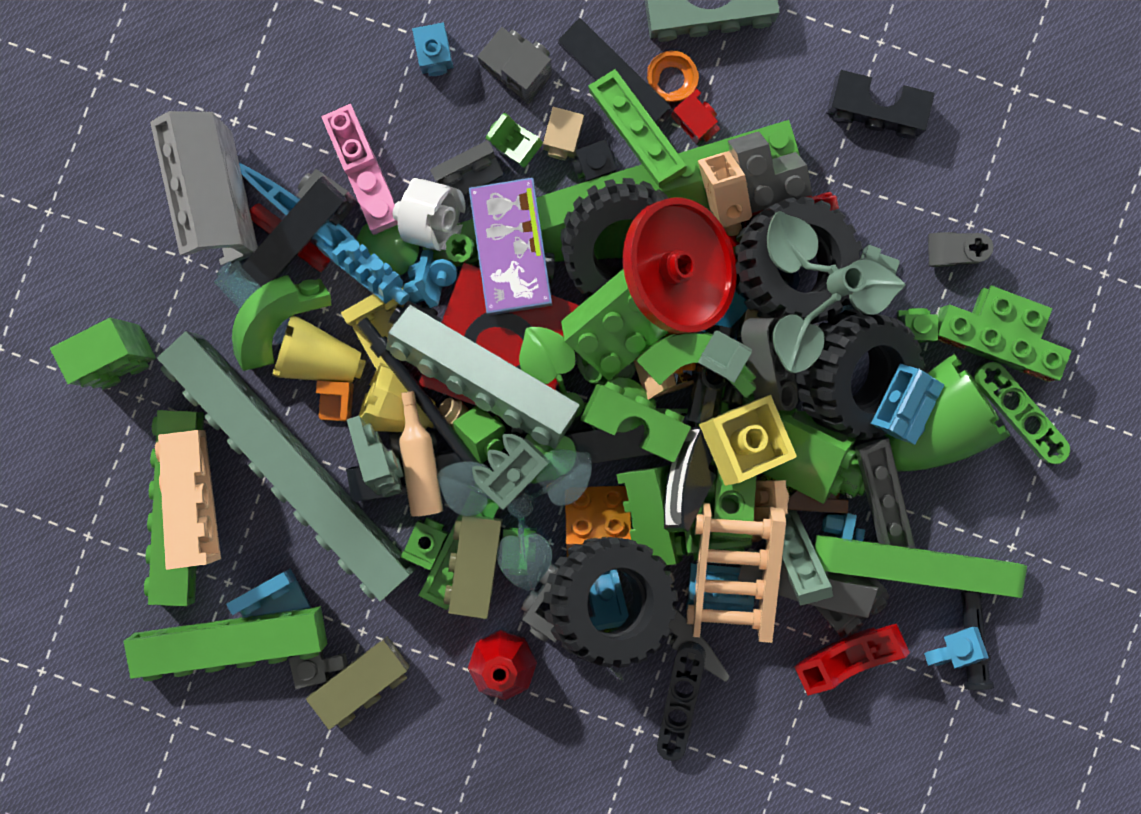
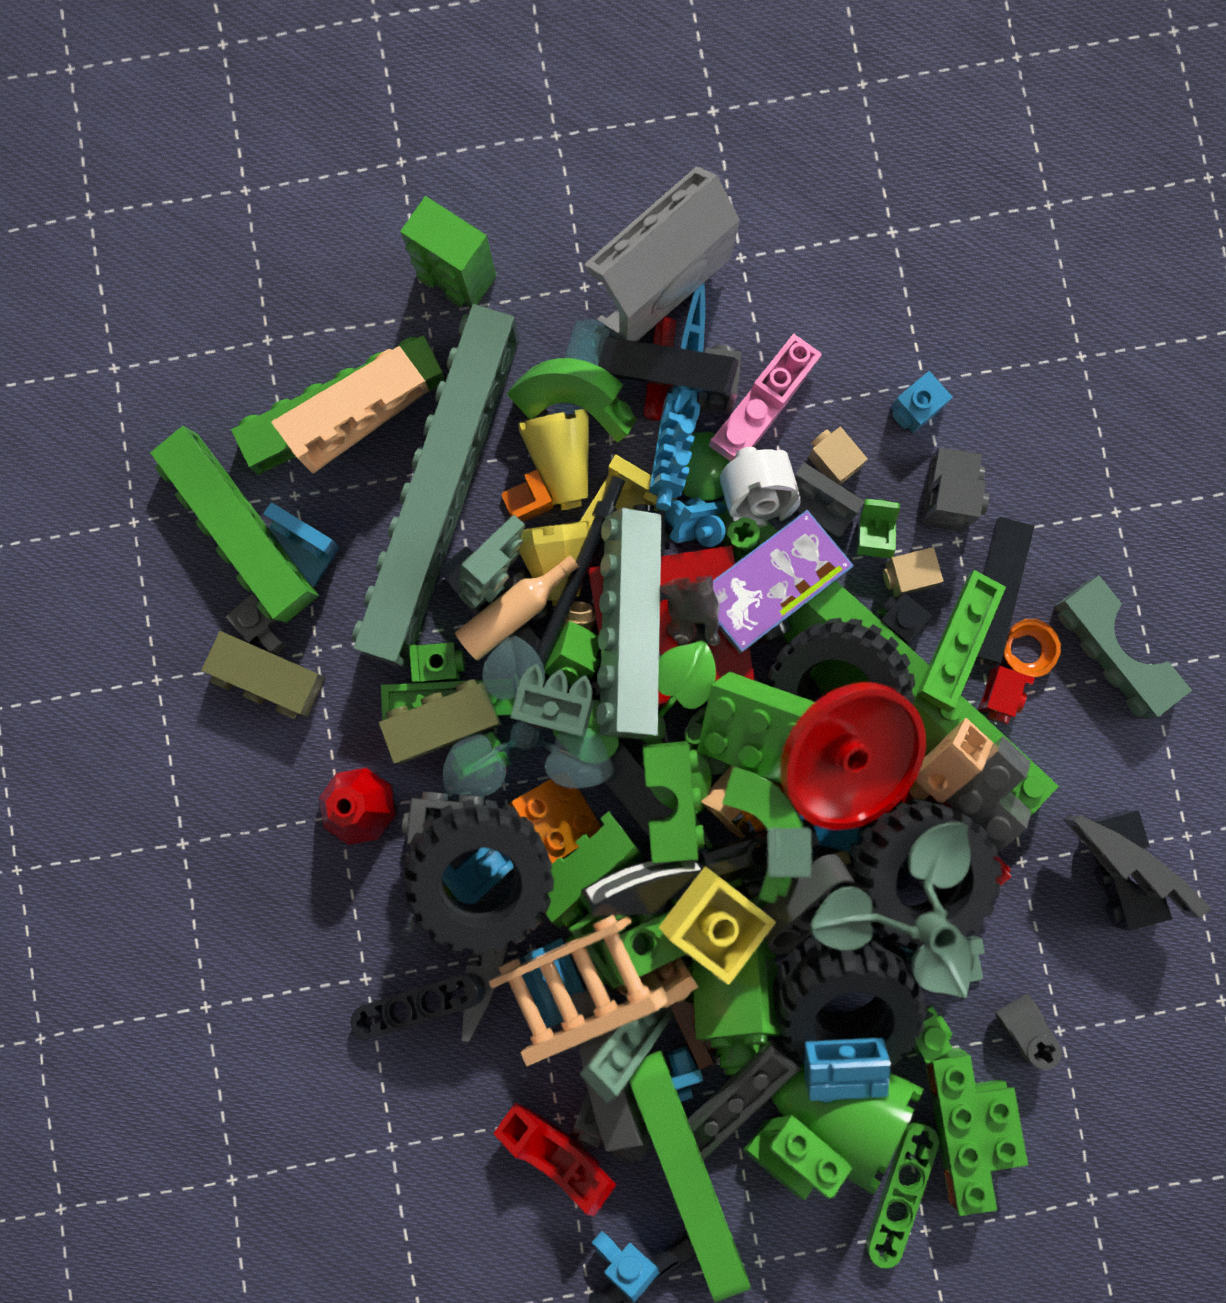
camera: 60 degrees right, 5 degrees down
(438, 139) = (836, 455): none -> tan brick
(494, 321) = (691, 604): none -> clear smoke animal
(870, 102) = (1125, 858): none -> dark grey slope
(951, 477) = (797, 1157): none -> bright green panel

